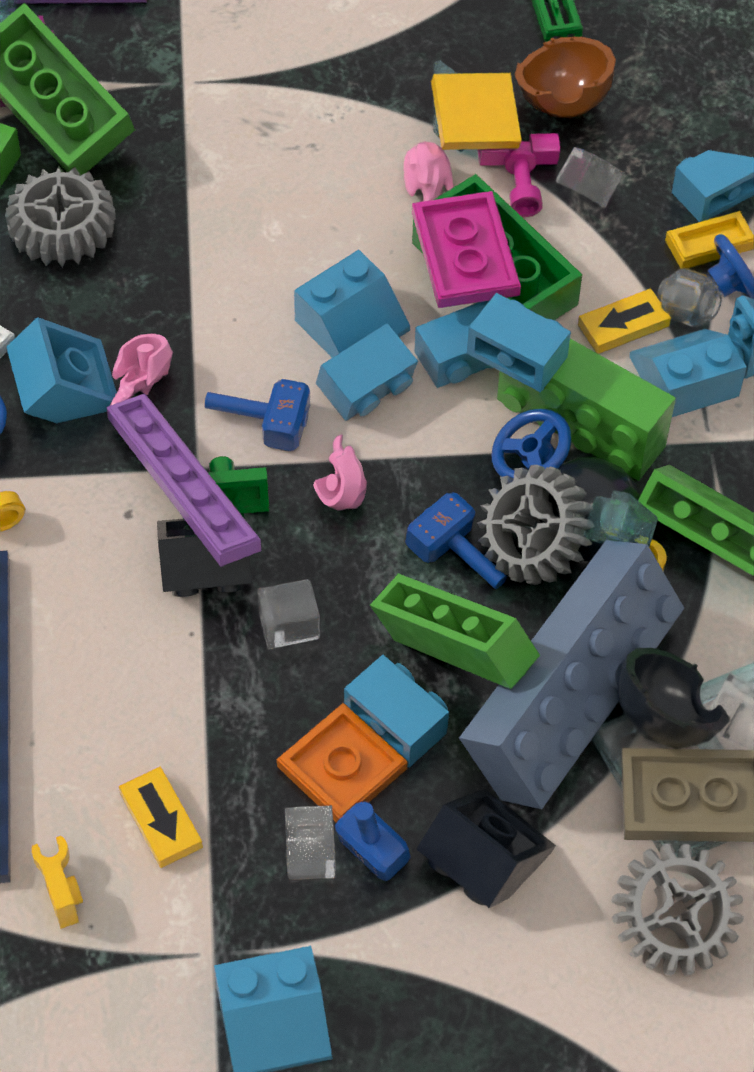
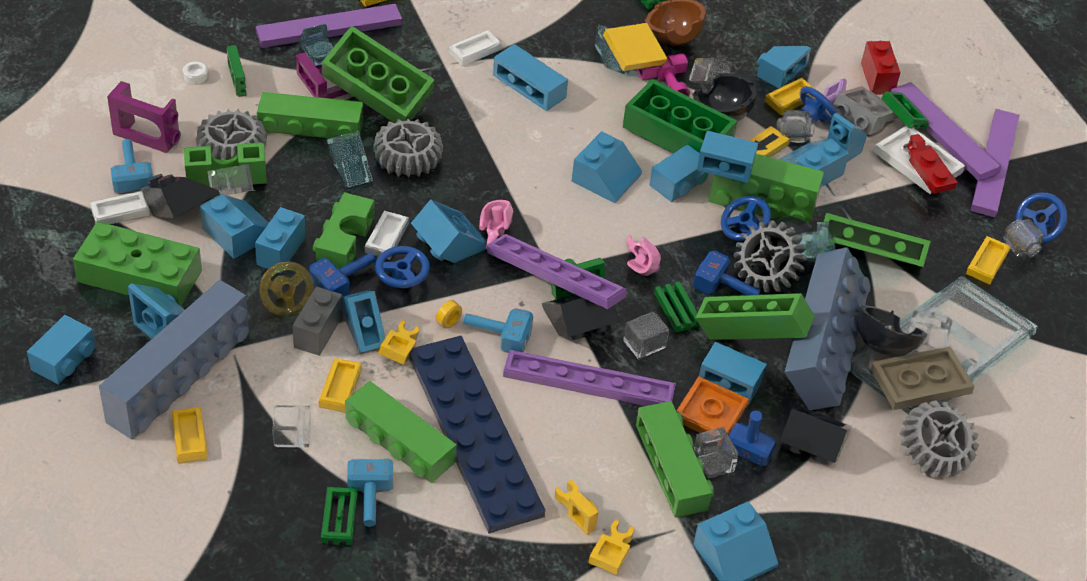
camera: 20 degrees left, 10 degrees down
(79, 969) = (612, 550): none -> yellow plate
(87, 563) = (514, 332): none -> dark azure piece
(160, 817) = (619, 460): yellow tile -> none
(175, 669) = (587, 379): none -> medium lavender tile
(239, 838) = (674, 459): none -> bright green brick
(240, 62) = (475, 48): none -> white tile
(283, 415) = (592, 229): blue piece -> none
(299, 130) = (530, 77): none -> dark azure brick
(362, 543) = (675, 294): none -> green tile
(367, 373) = (632, 198): dark azure brick -> none
(428, 170) = (615, 84): bright pink piece -> none
(465, 249) = (666, 118): dark pink tile -> none
(592, 230) = (730, 95): none -> black cylinder

